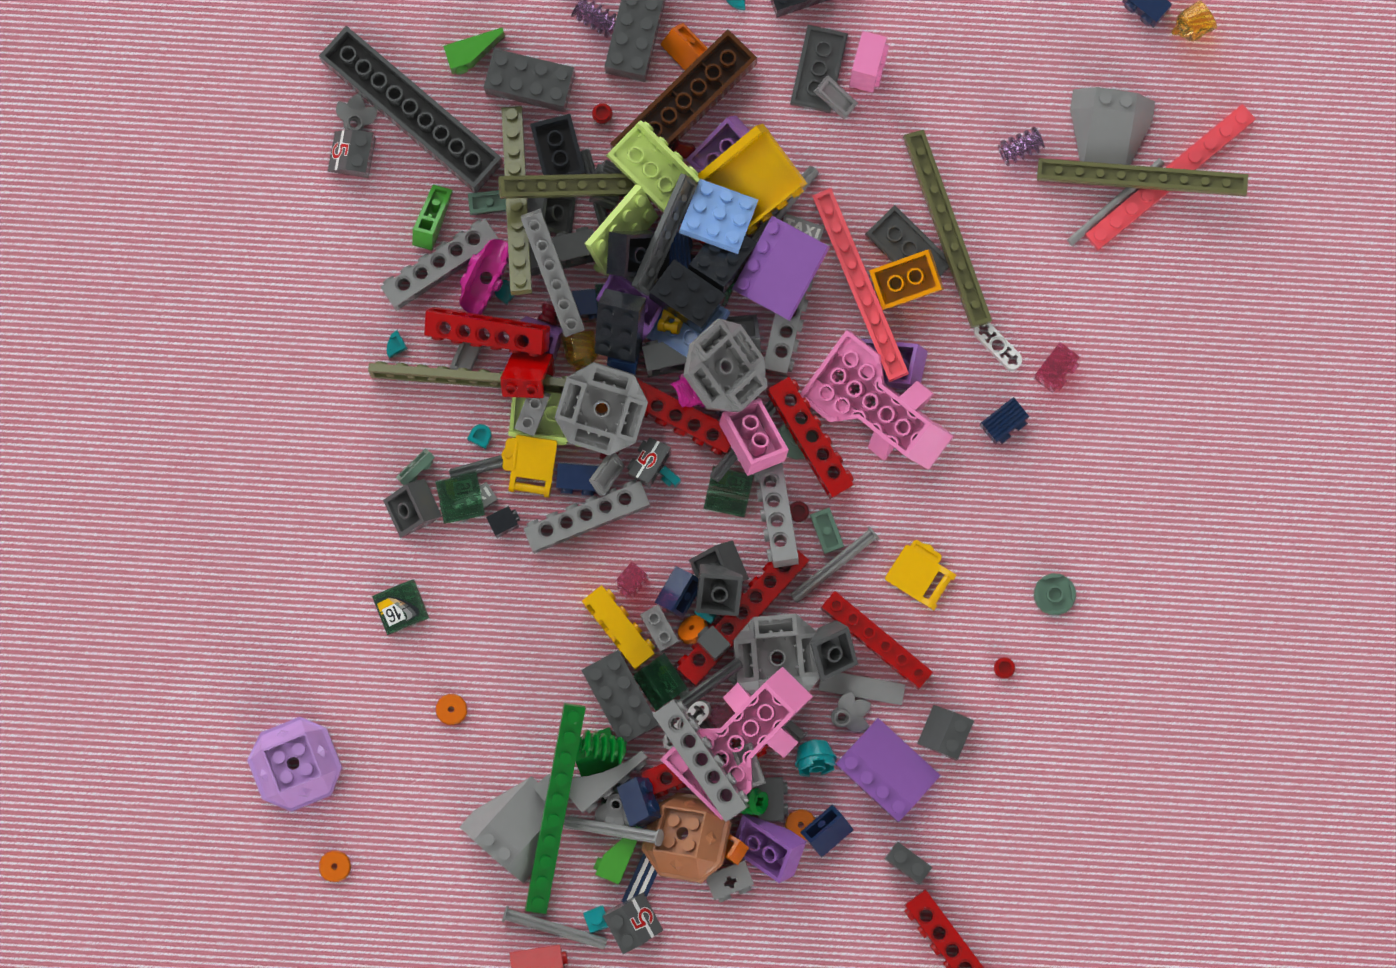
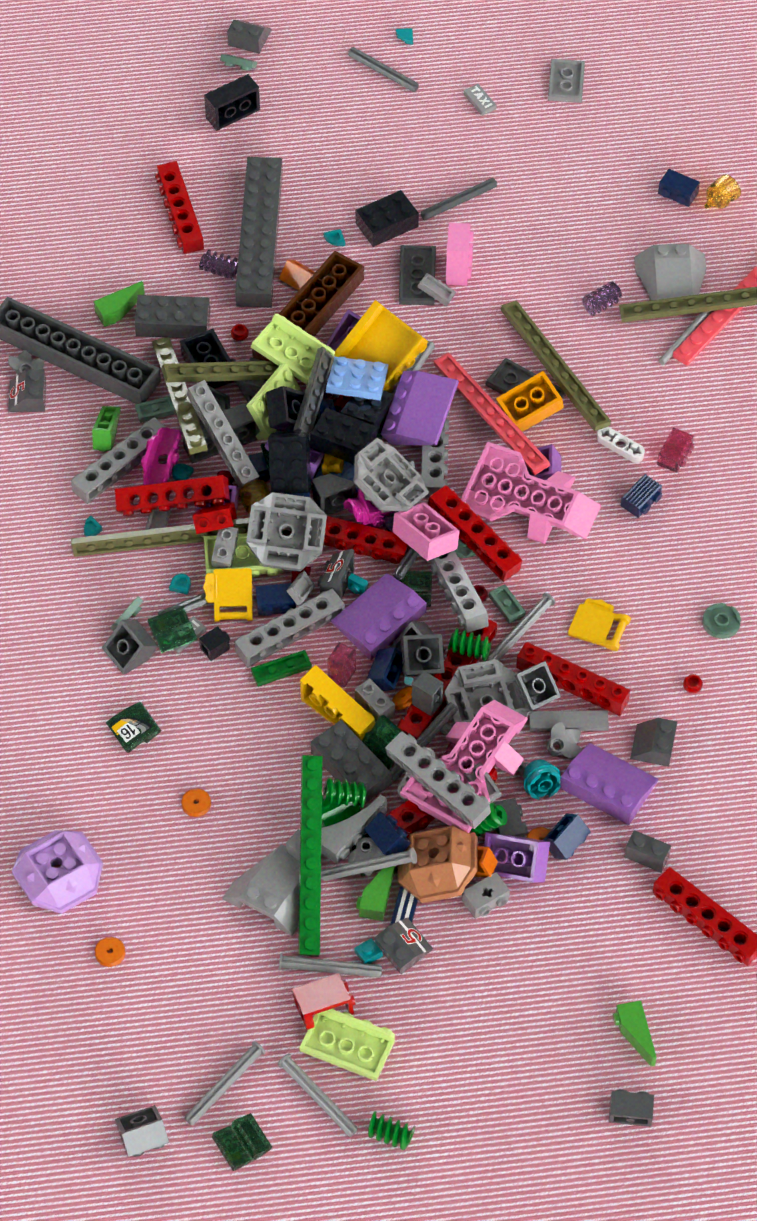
camera: 15 degrees left, 25 degrees down
(569, 562) = (281, 668): none -> green tile
(684, 521) = (380, 615): none -> medium lavender slope
(772, 587) = (469, 644): none -> green piece

